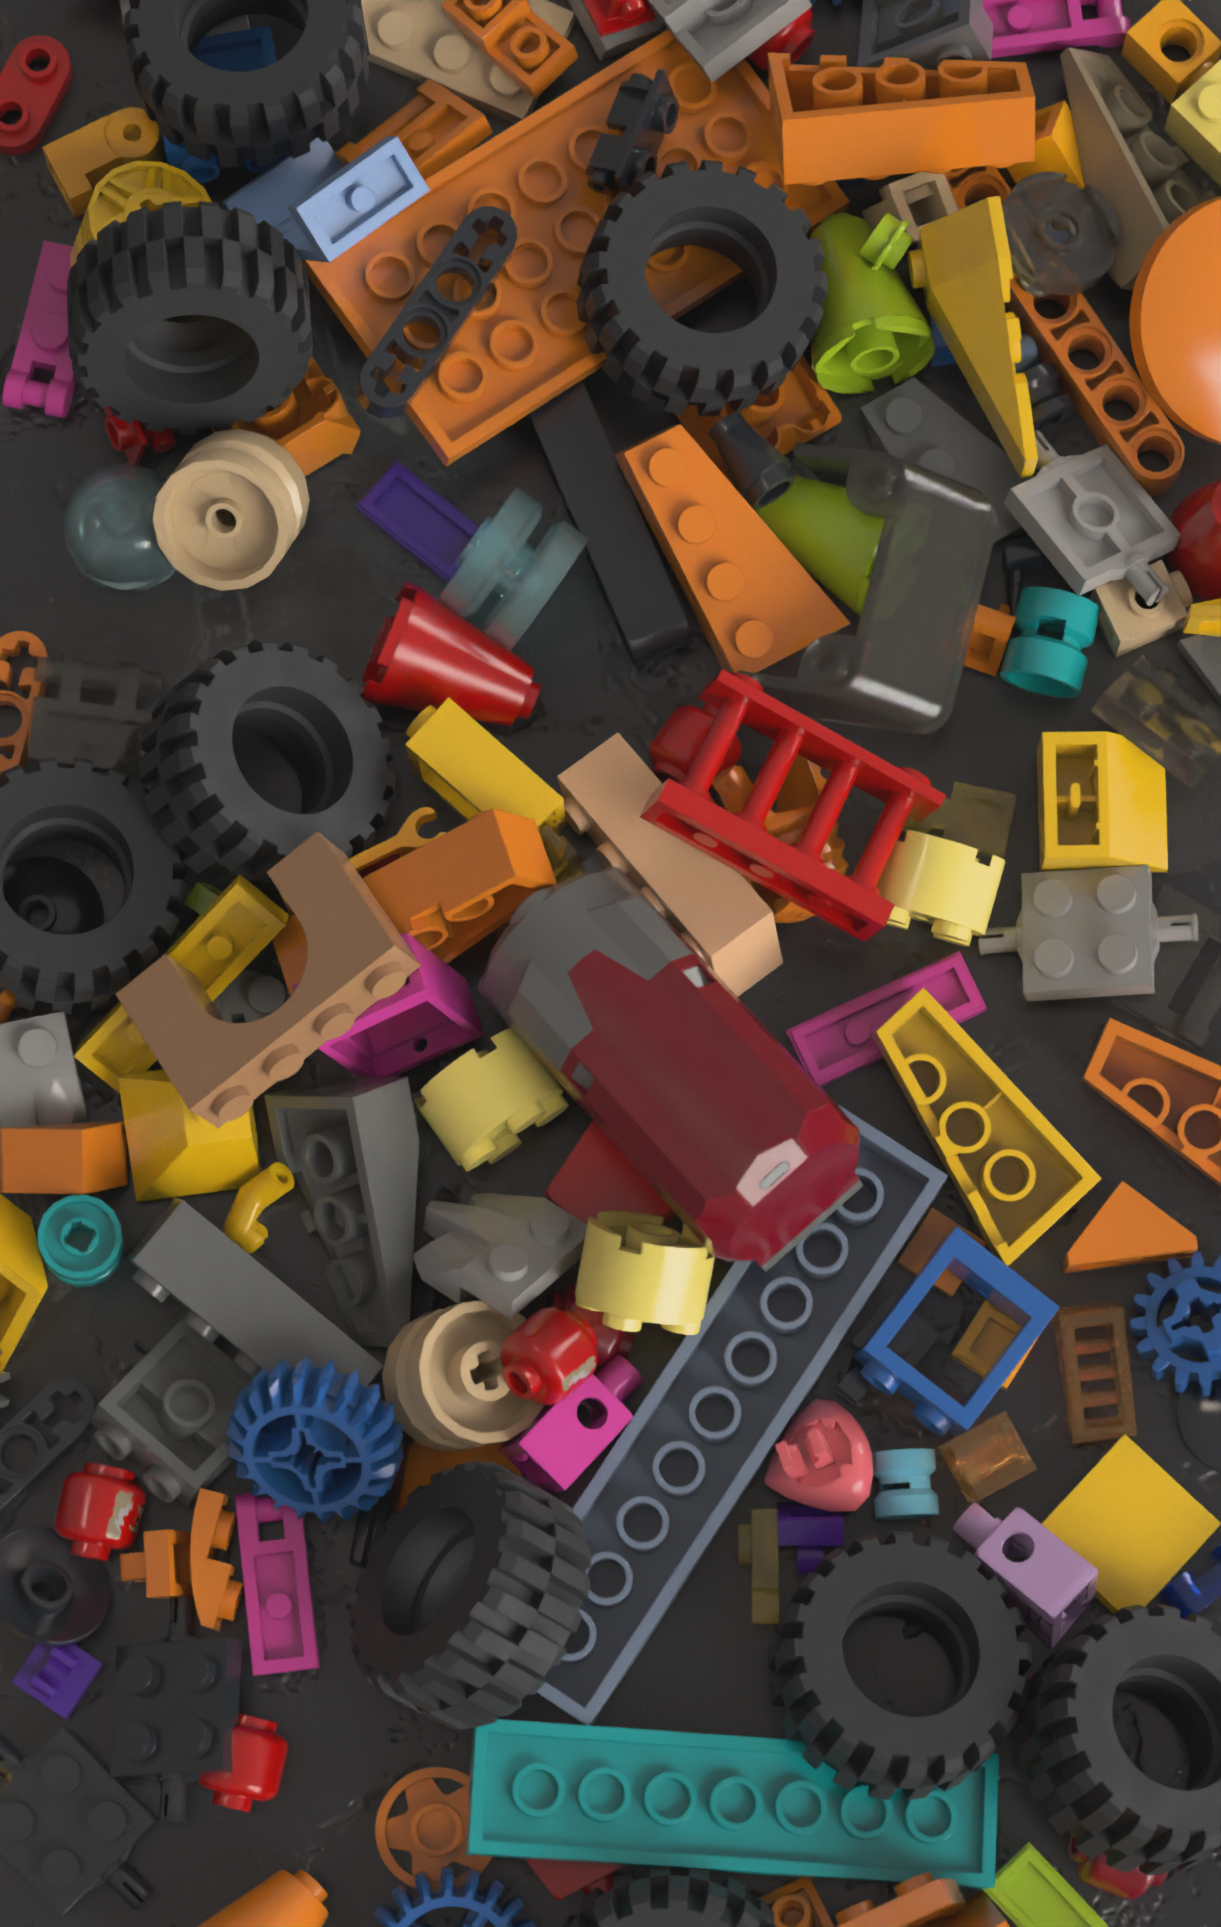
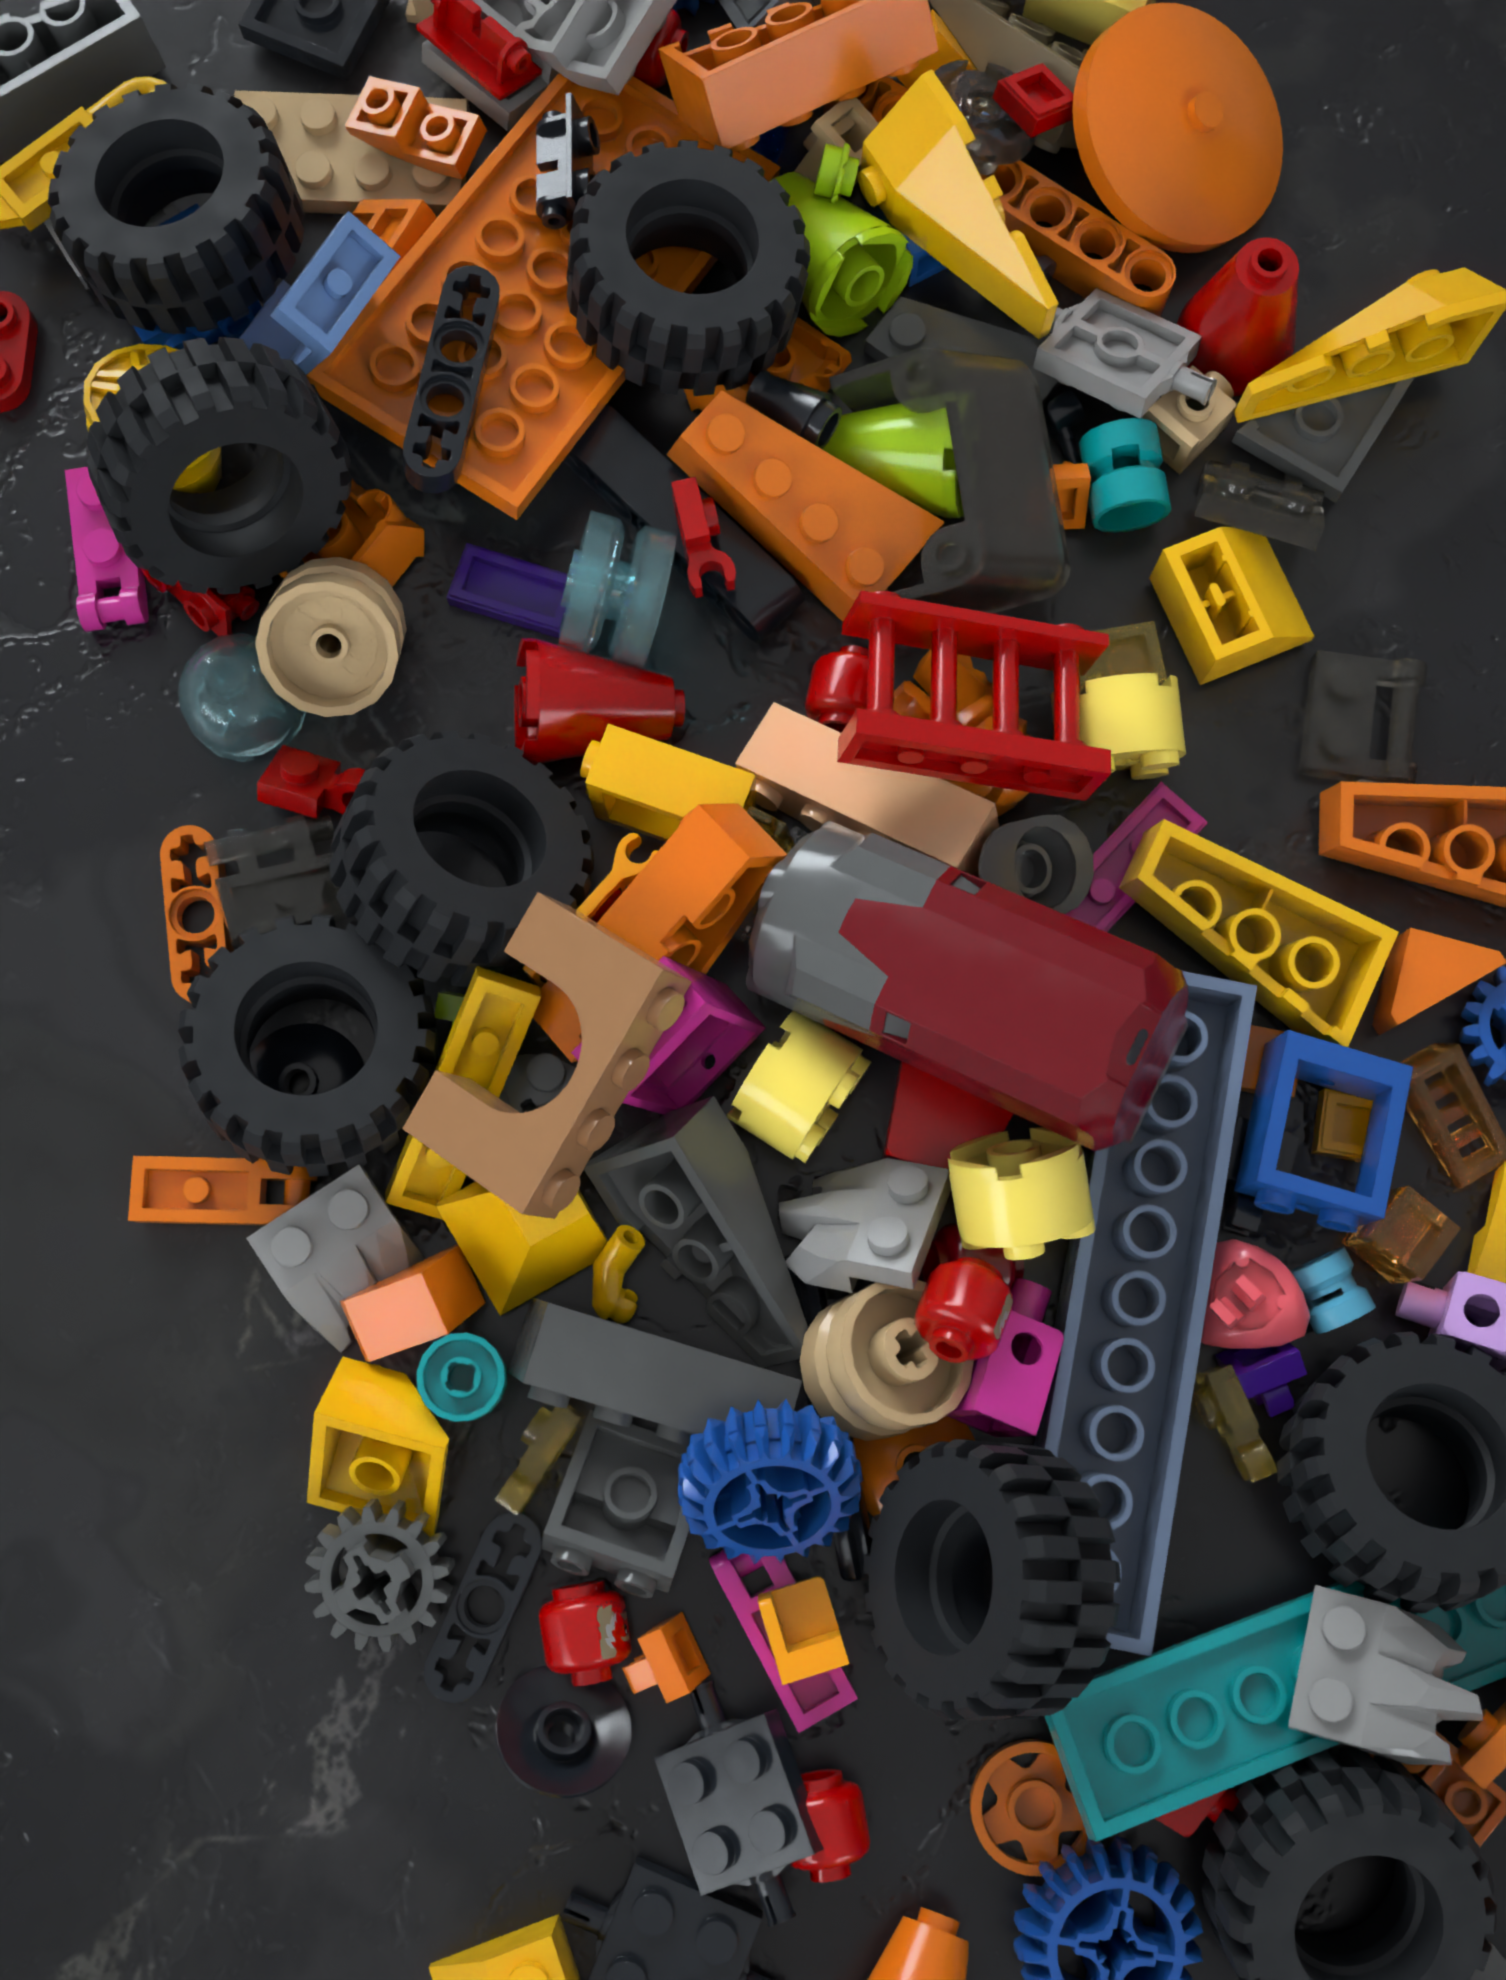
camera: 25 degrees left, 0 degrees up
(58, 1676) = (610, 1813): dark purple tile -> none
(94, 150) = (62, 379): light orange leg -> none
(133, 1330) = (547, 1439): none -> clear yellow plate
(157, 636) = (307, 783): none -> red plate
(213, 1581) = (723, 1660): orange slope -> none
(292, 1581) = (802, 1629): none -> light orange panel
(612, 535) = (697, 523): none -> red plate
(778, 1825) = (1377, 1680): none -> light grey plate
(796, 984) = (1040, 860): none -> dark grey piece
(1088, 933) = (1274, 718): light grey plate -> none
(1110, 243) = (1035, 99): none -> red tile

